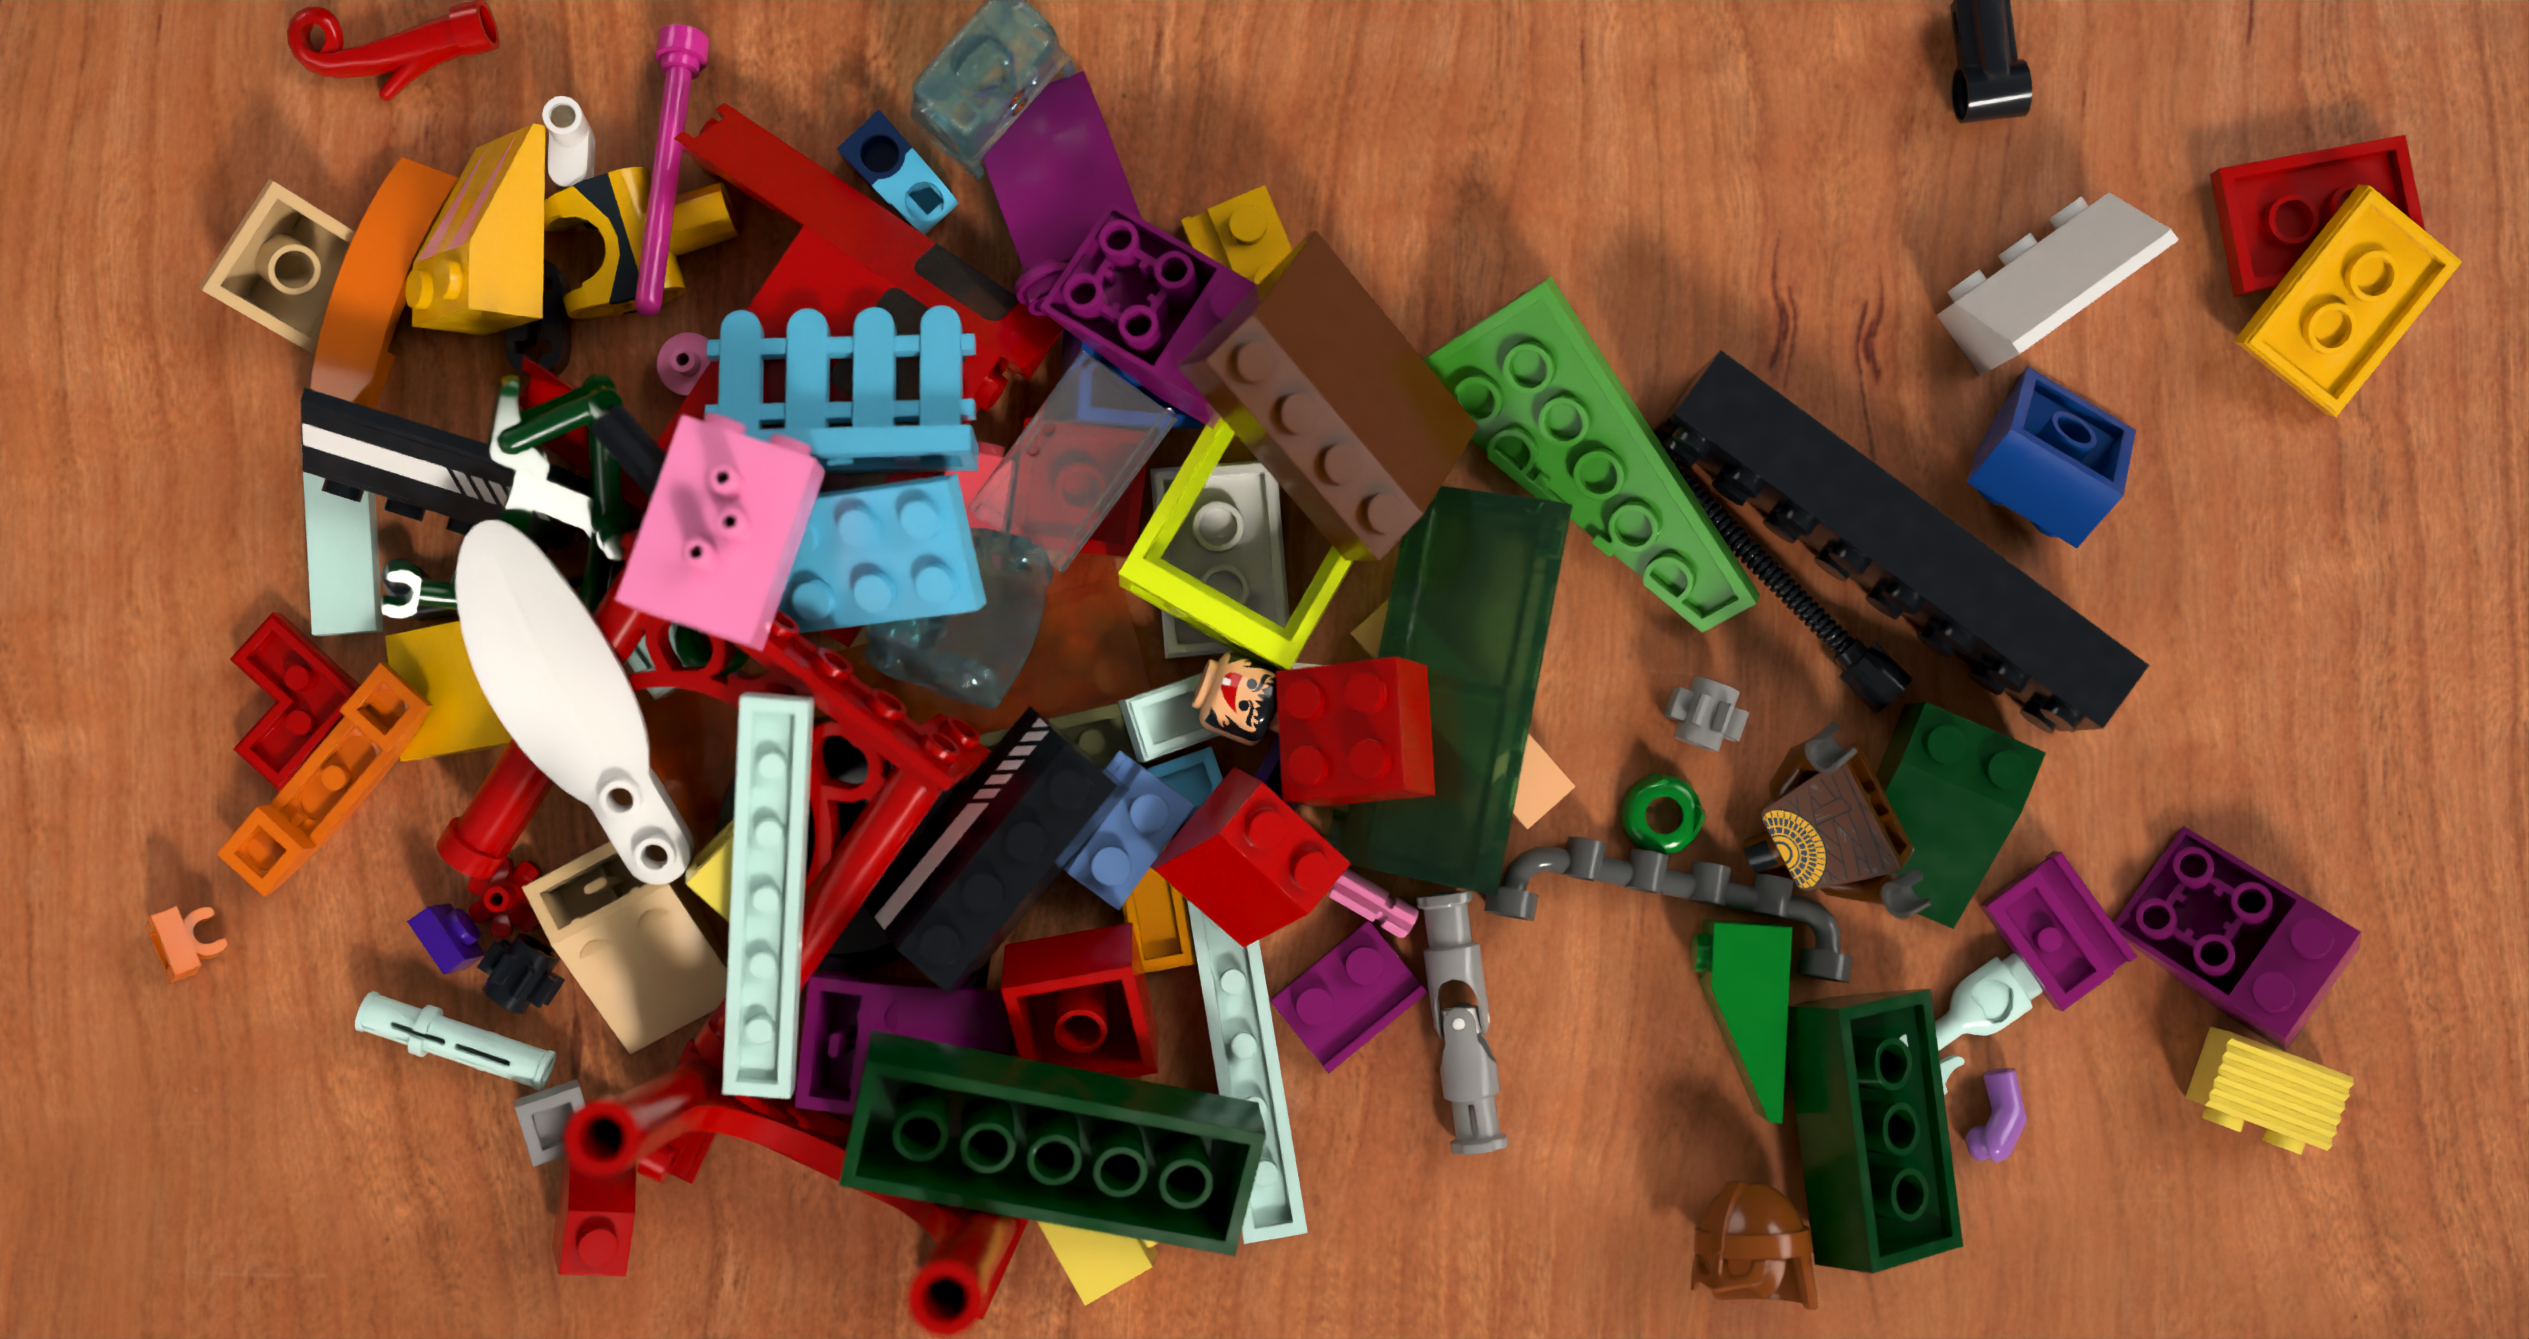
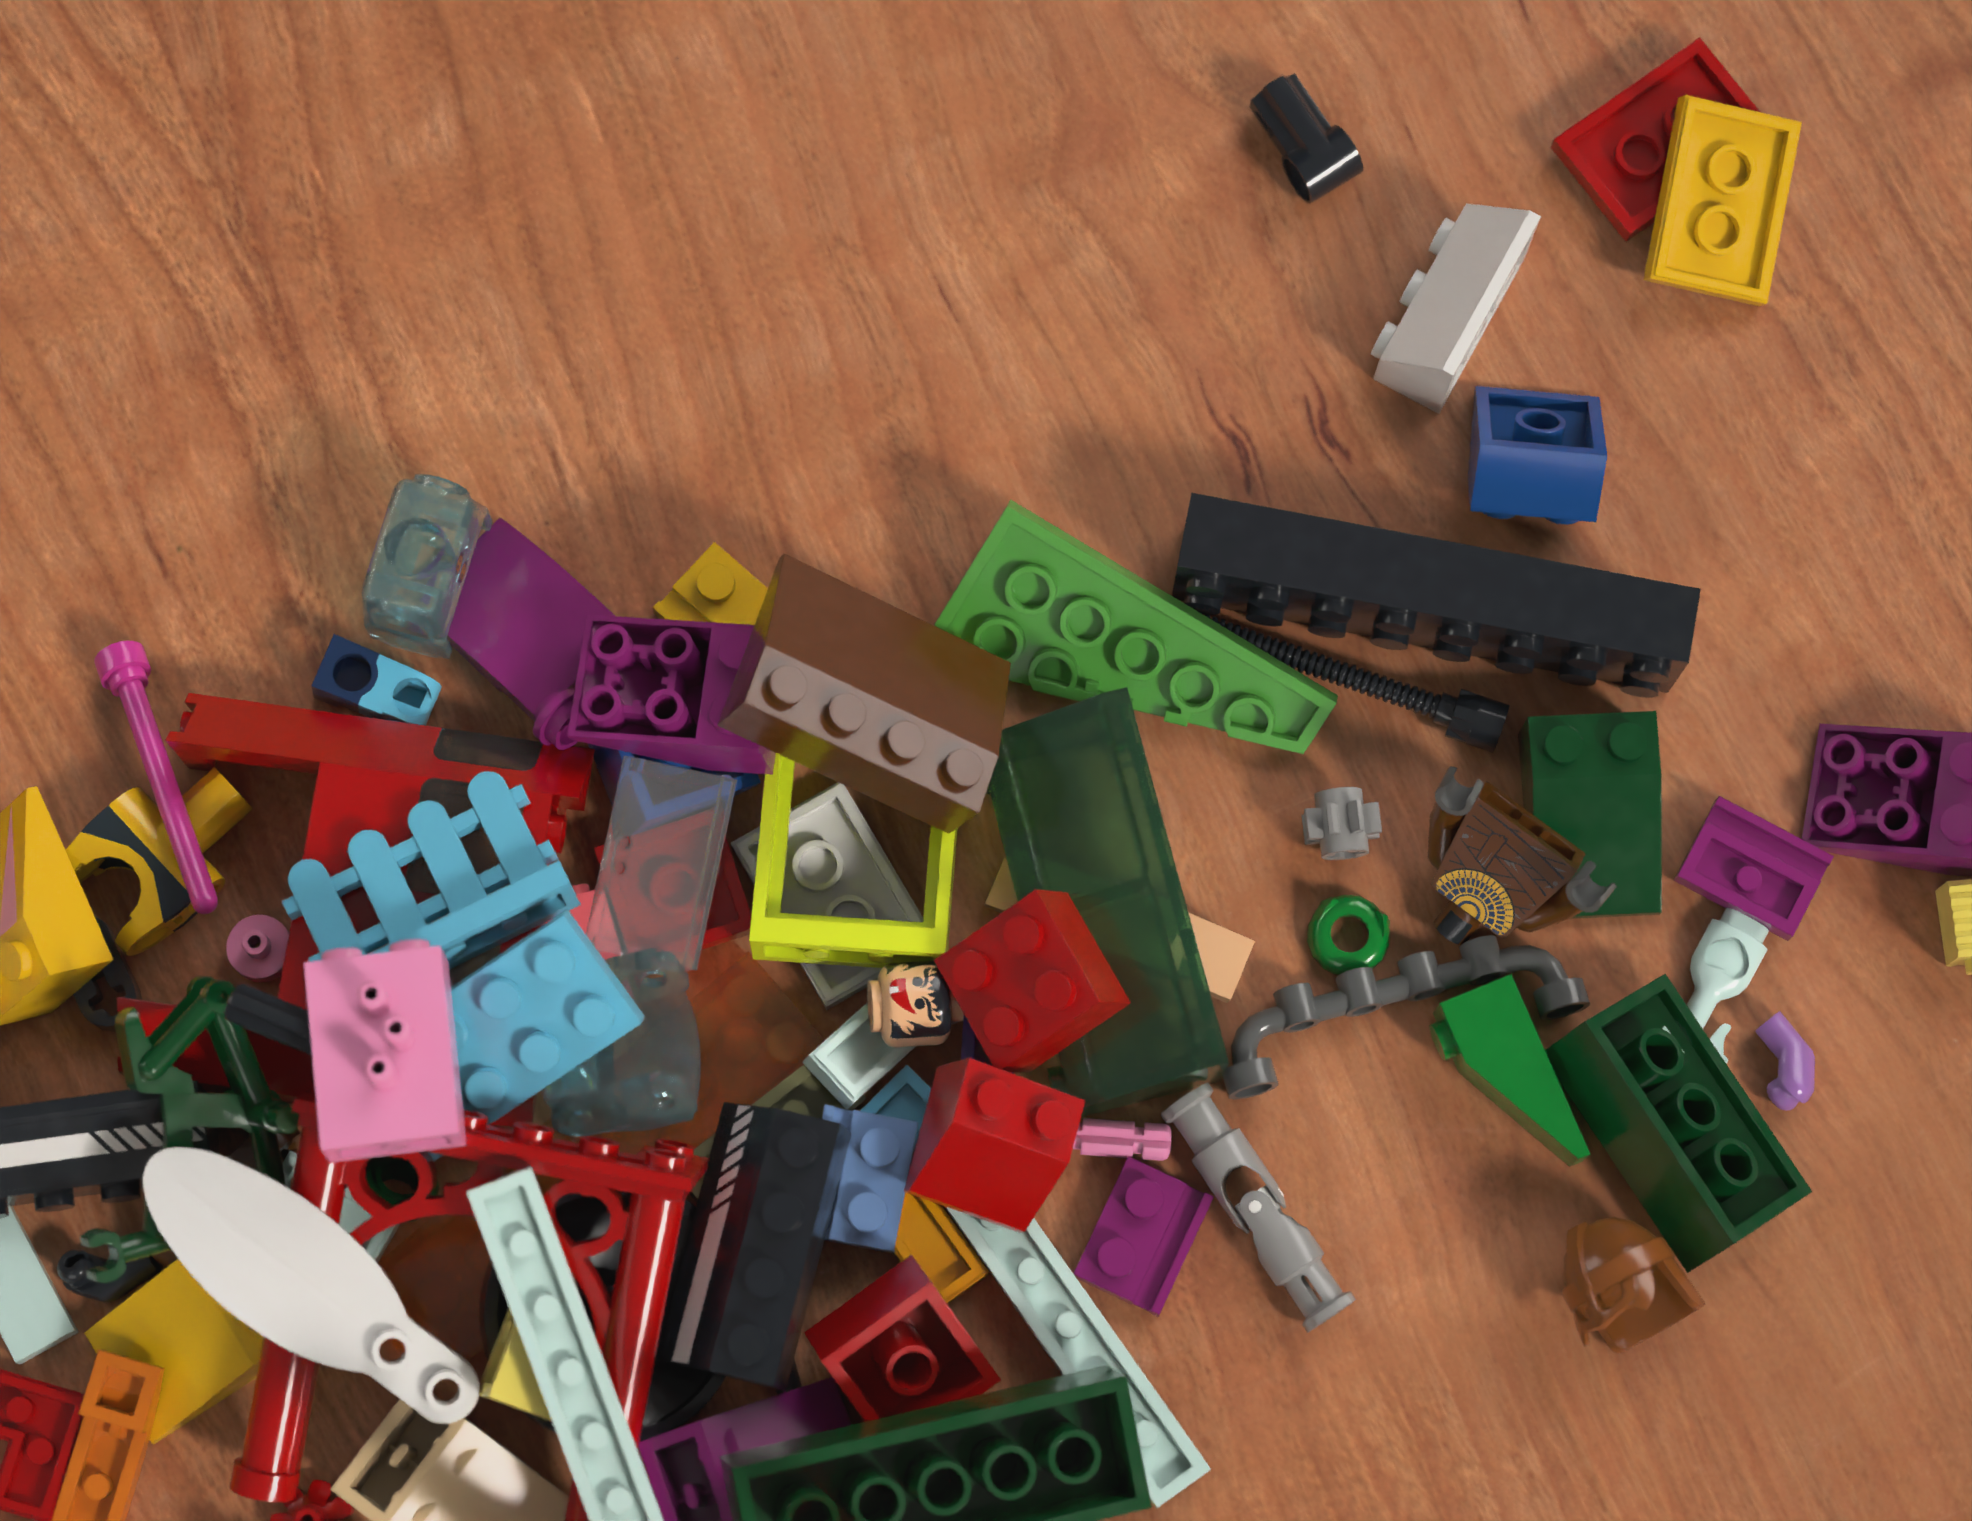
camera: 25 degrees left, 10 degrees down
(570, 142) = (56, 785): white piece -> none

